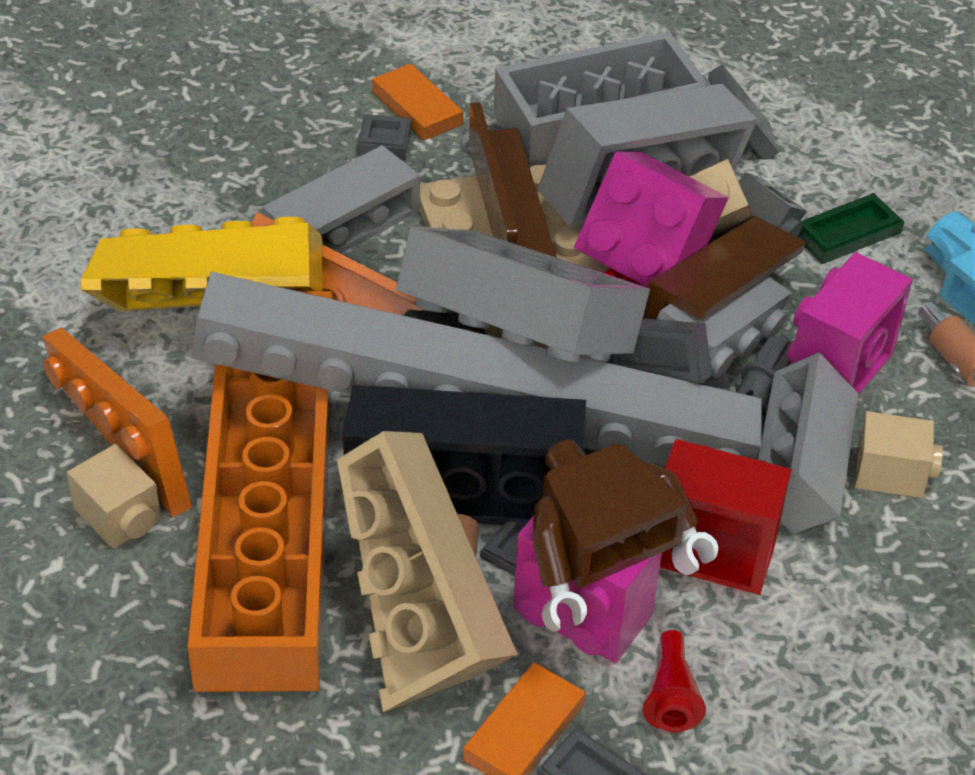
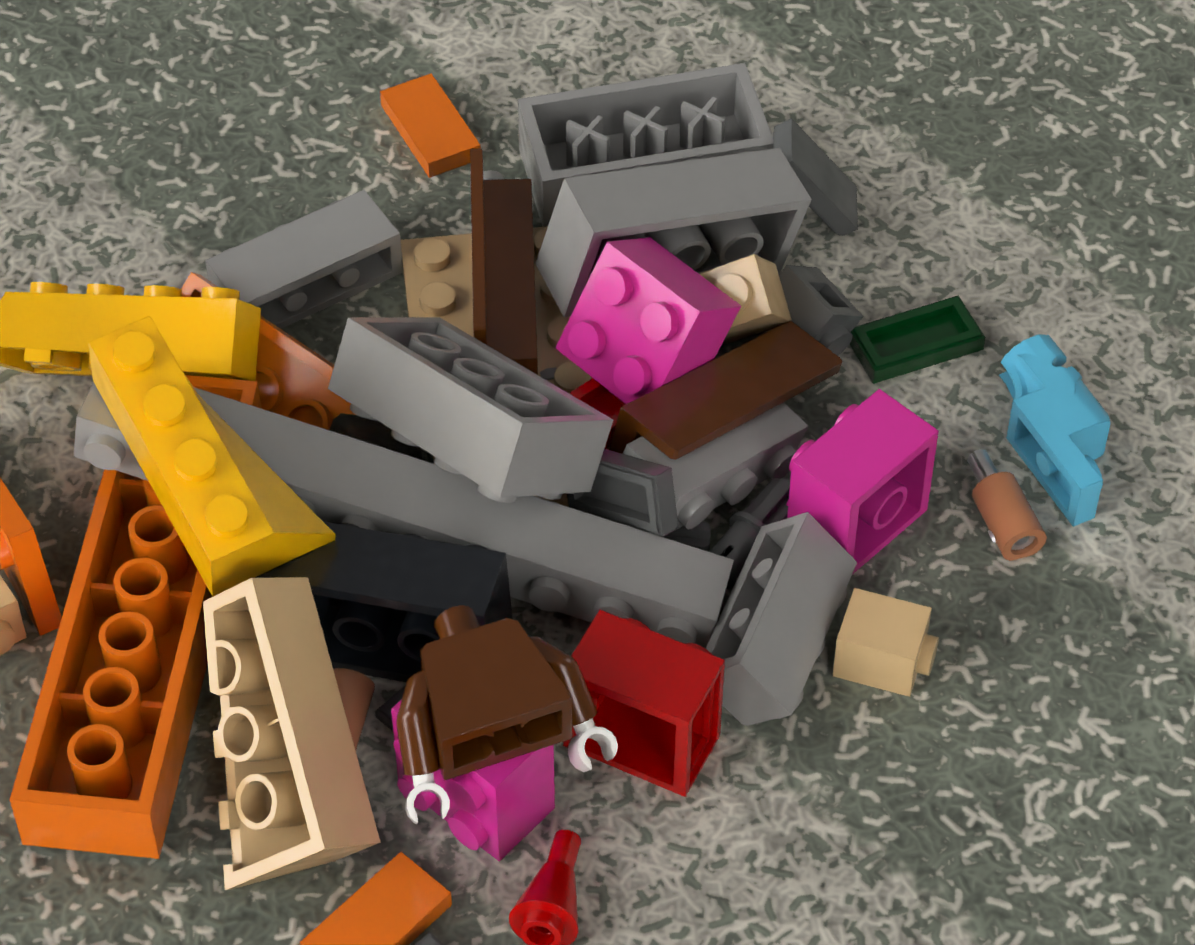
camera: 10 degrees right, 5 degrees up
(323, 365) = (211, 483): none -> yellow wedge
(385, 131) = (380, 170): dark grey tile -> none

